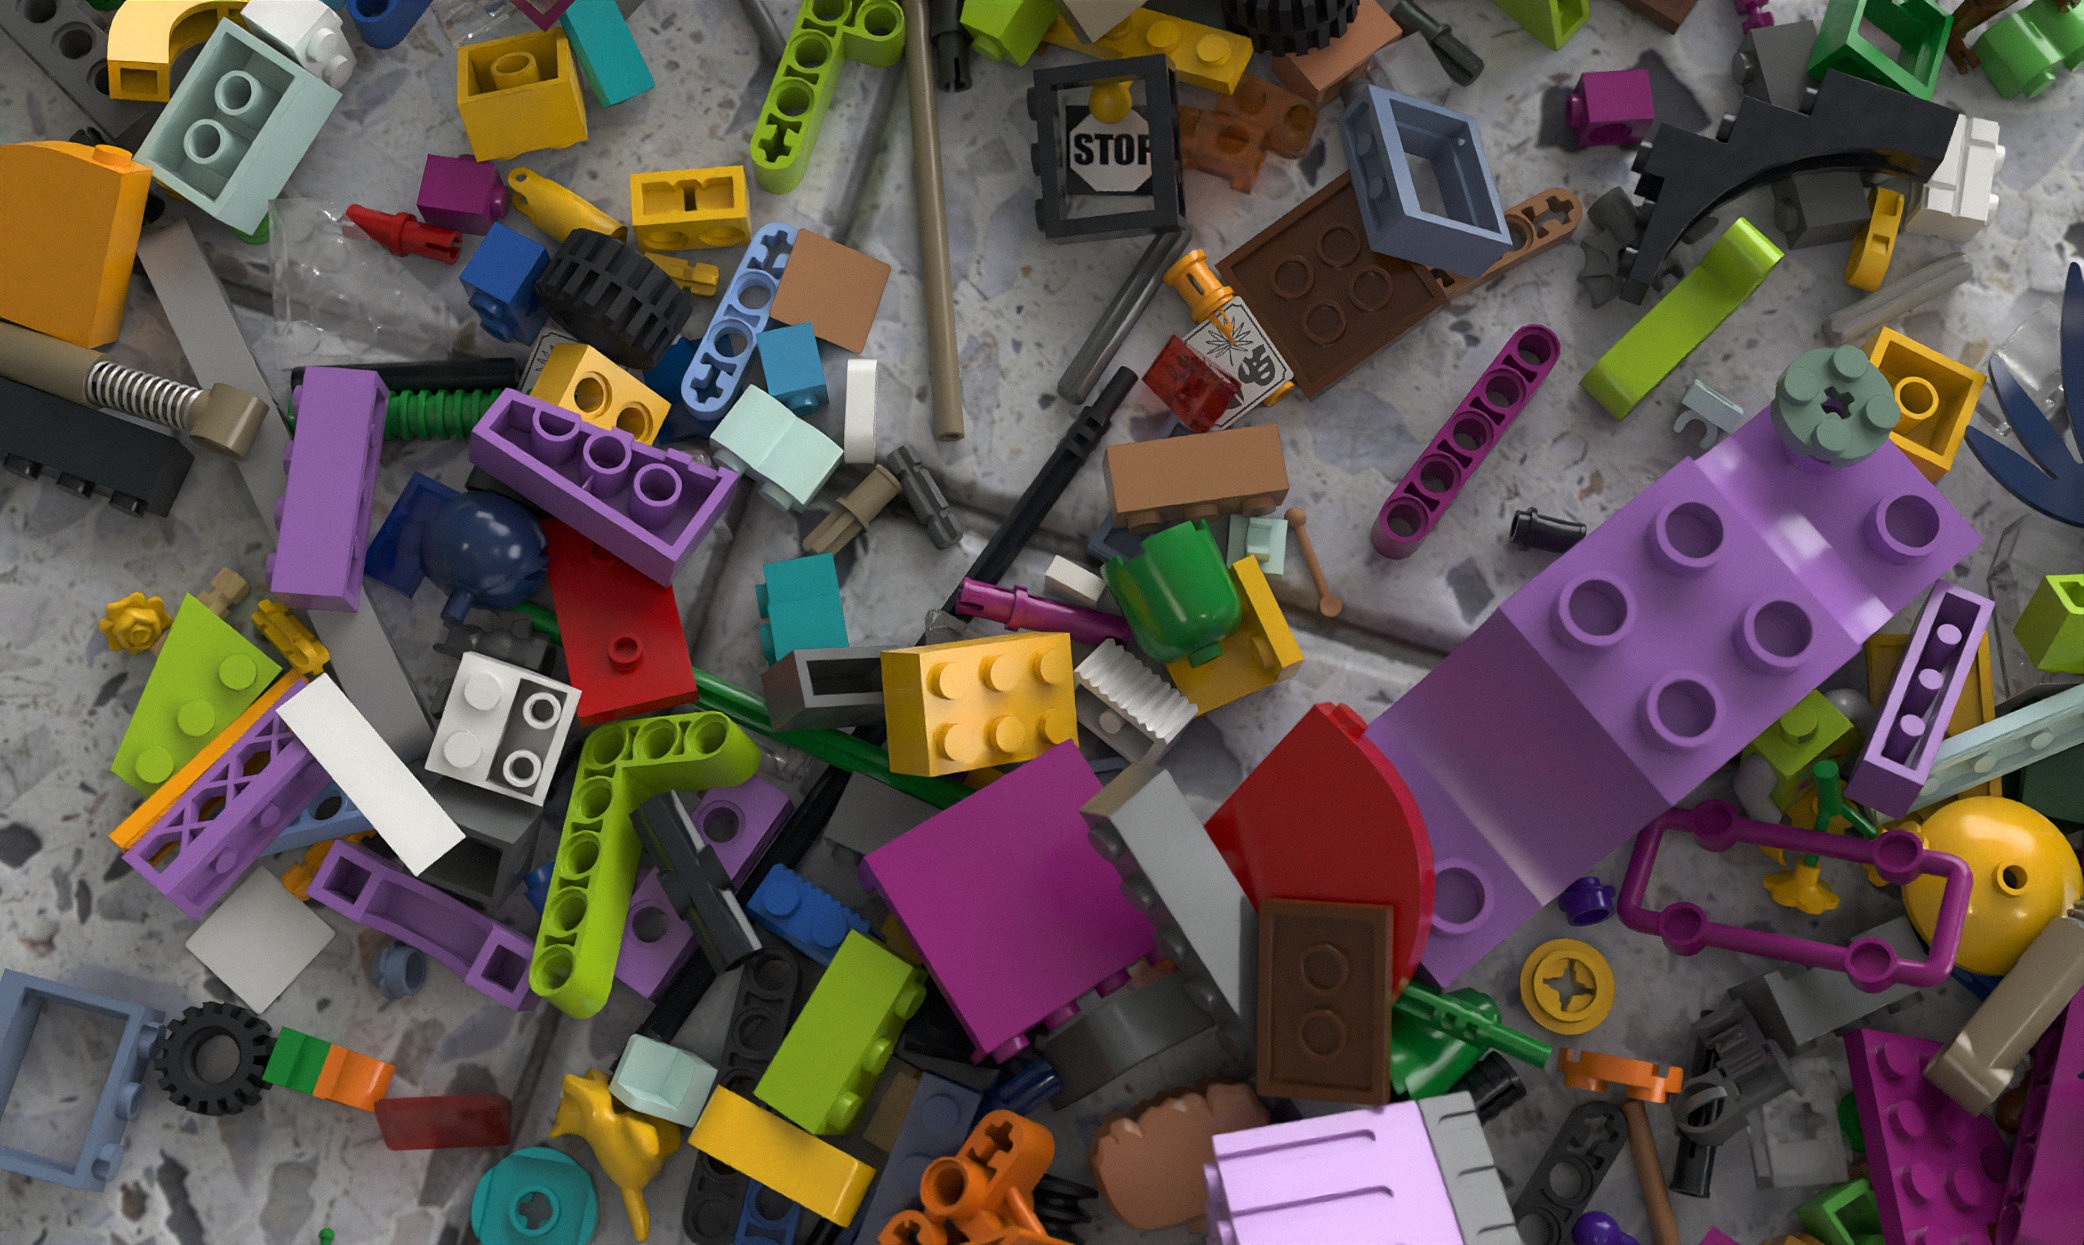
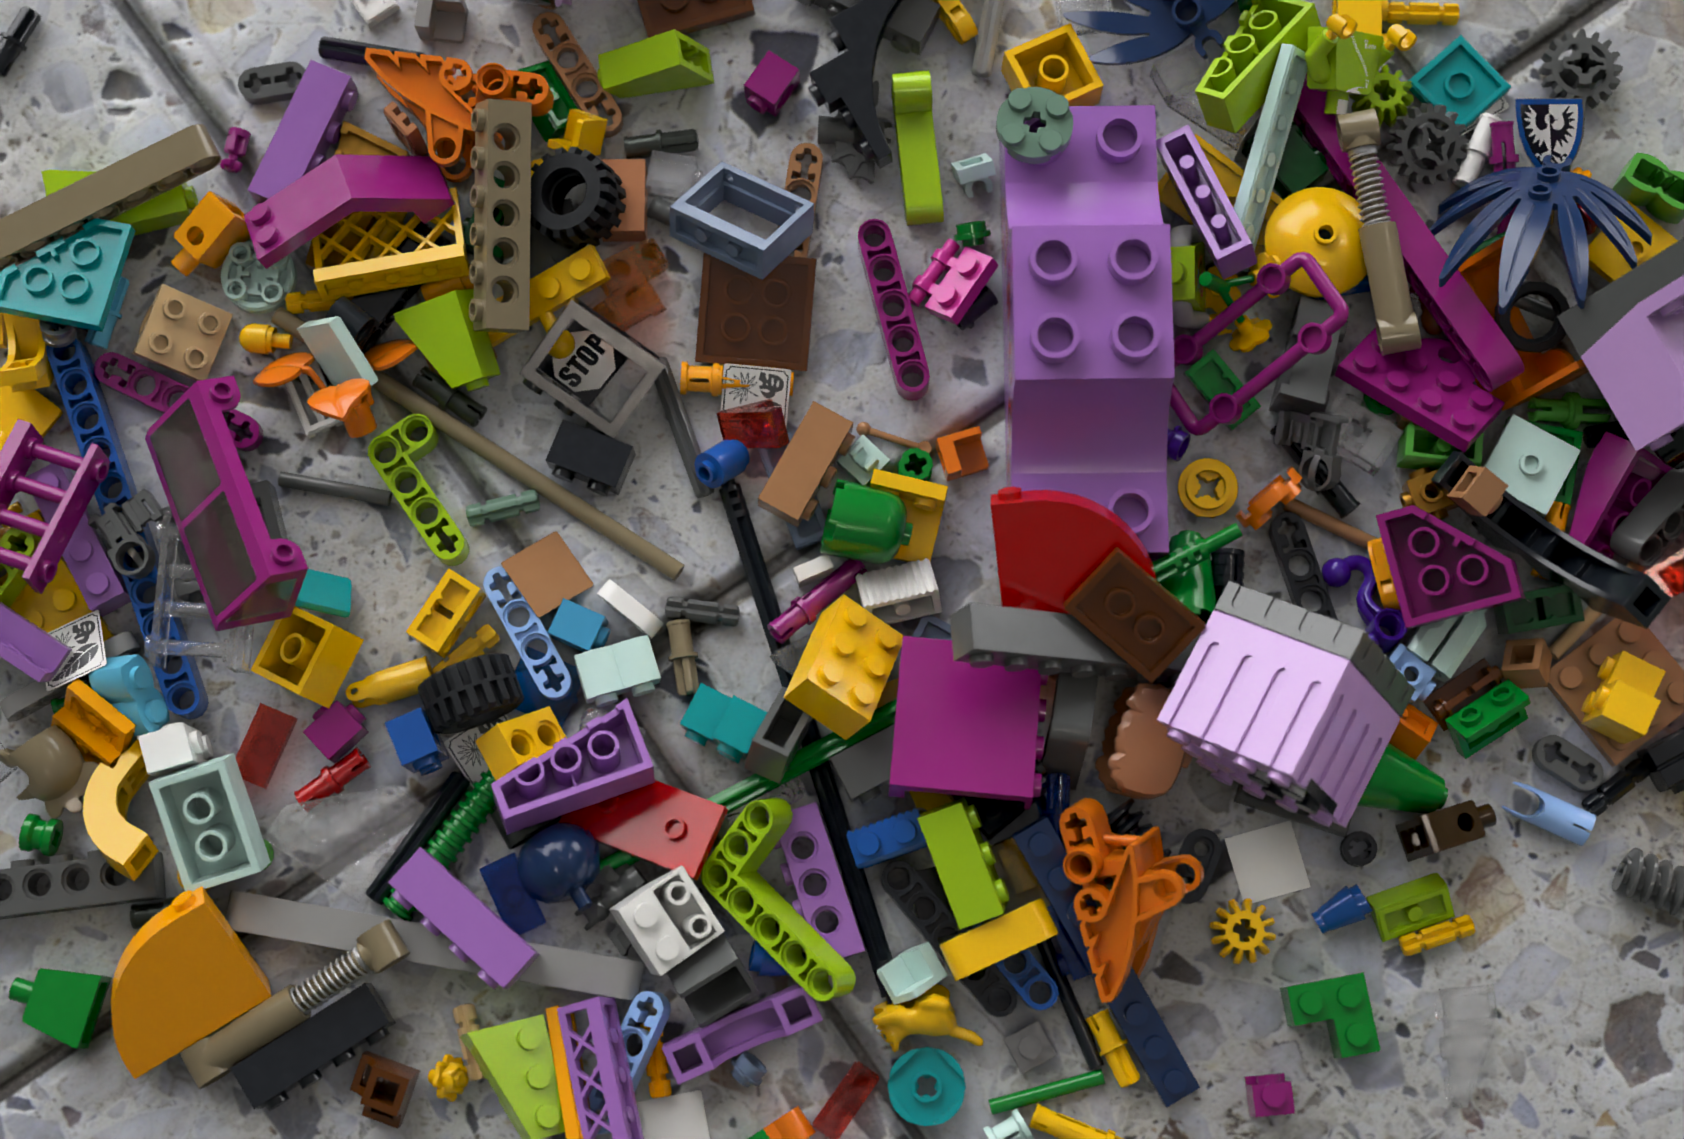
camera: 45 degrees left, 5 degrees up
(70, 559) = (384, 1088): none -> reddish brown brick
(290, 637) = (524, 1000): yellow axle -> none
(370, 774) = (642, 1005): white sticker -> none
(386, 133) = (264, 745): none -> clear red plate
(696, 882) = (826, 880): black piece -> none
(869, 186) = (502, 508): none -> sand green axle
(1004, 234) = (590, 458): none -> black brick
(1118, 381) = (721, 463): none -> blue brick
(1311, 597) = (921, 458): none -> green bush
(1361, 653) = (962, 453): none -> orange panel
(1557, 495) = (960, 285): none -> dark pink plate
(1634, 462) = (972, 233): none -> green plate
(1712, 883) = (1213, 376): none -> green plate

